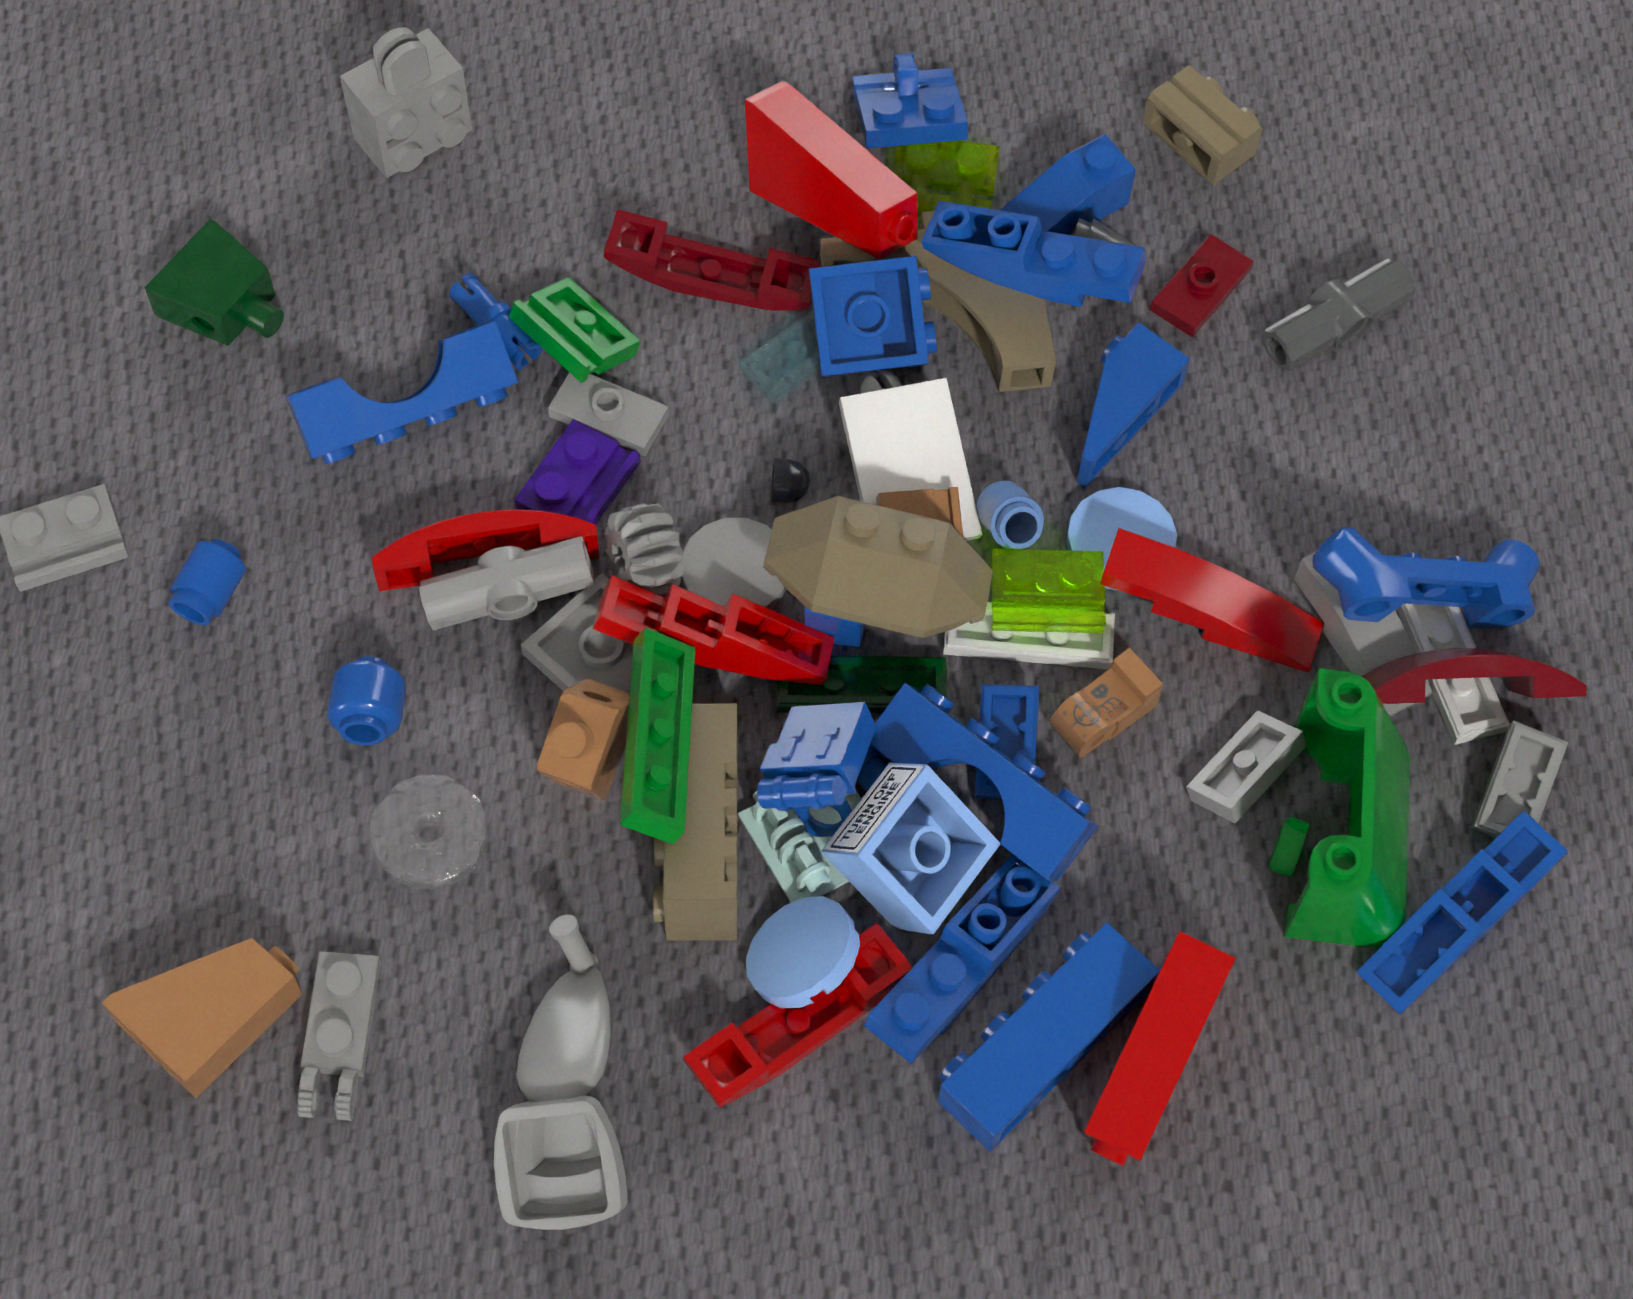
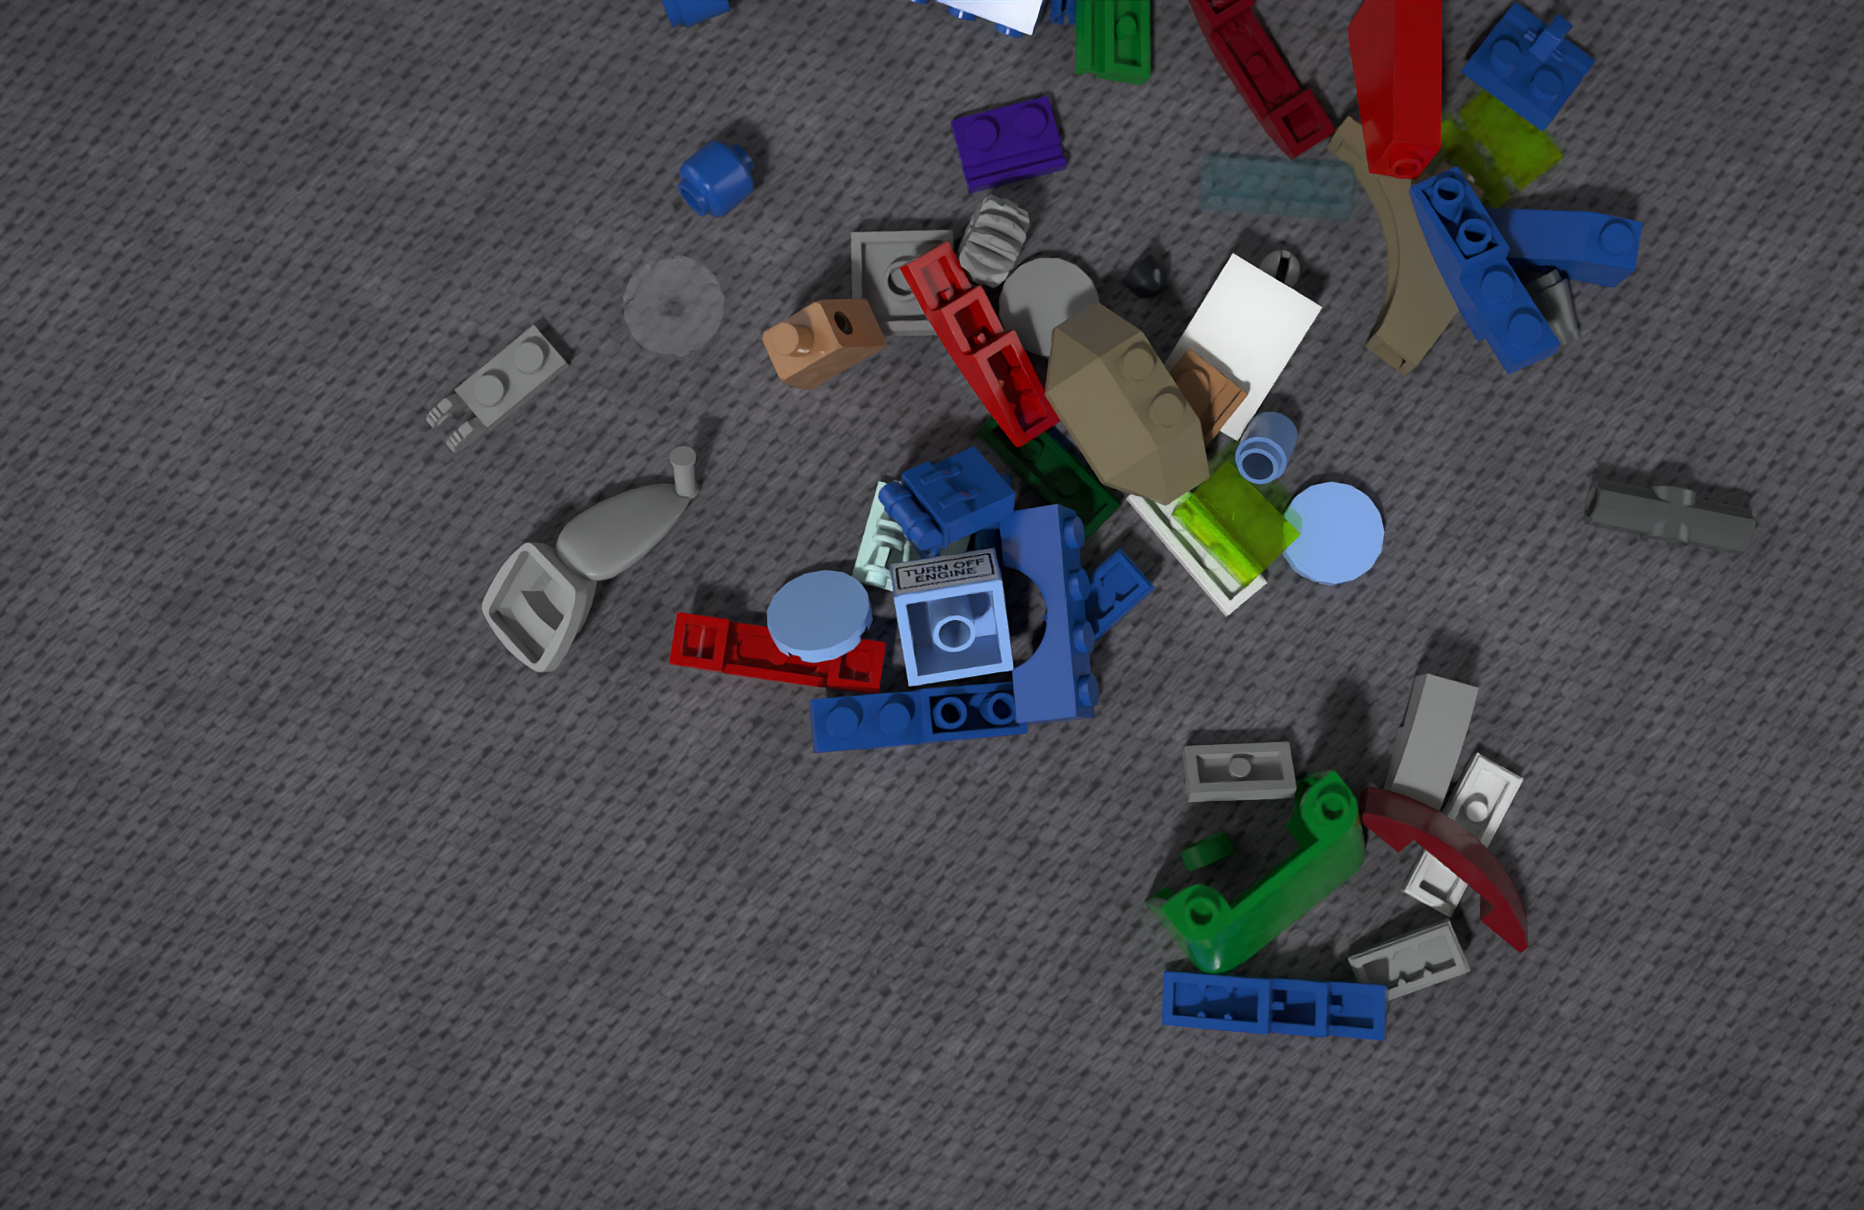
camera: 45 degrees right, 20 degrees up
(207, 1010) = (428, 301): medium nougat slope -> none
(471, 536) = (845, 102): red slope -> none
(507, 583) = (883, 179): light grey piece -> none
(610, 411) = (1079, 113): light grey plate -> none
(658, 737) = (858, 387): green plate -> none
(701, 866) = (844, 463): dark tan wedge -> none
(872, 316) = (1322, 210): blue plate -> none
(1046, 1036) = (919, 817): blue brick -> none
(1107, 704) = (1190, 640): medium nougat leg -> none
(1134, 384) = (1457, 432): blue slope -> none
(1158, 1049) = (978, 897): red slope -> none
(1201, 285) = (1595, 401): dark red plate -> none
(1202, 124) = (1734, 277): dark tan brick -> none
(1213, 599) = (1340, 638): red slope -> none
(1377, 584) = (1449, 745): blue plate -> none

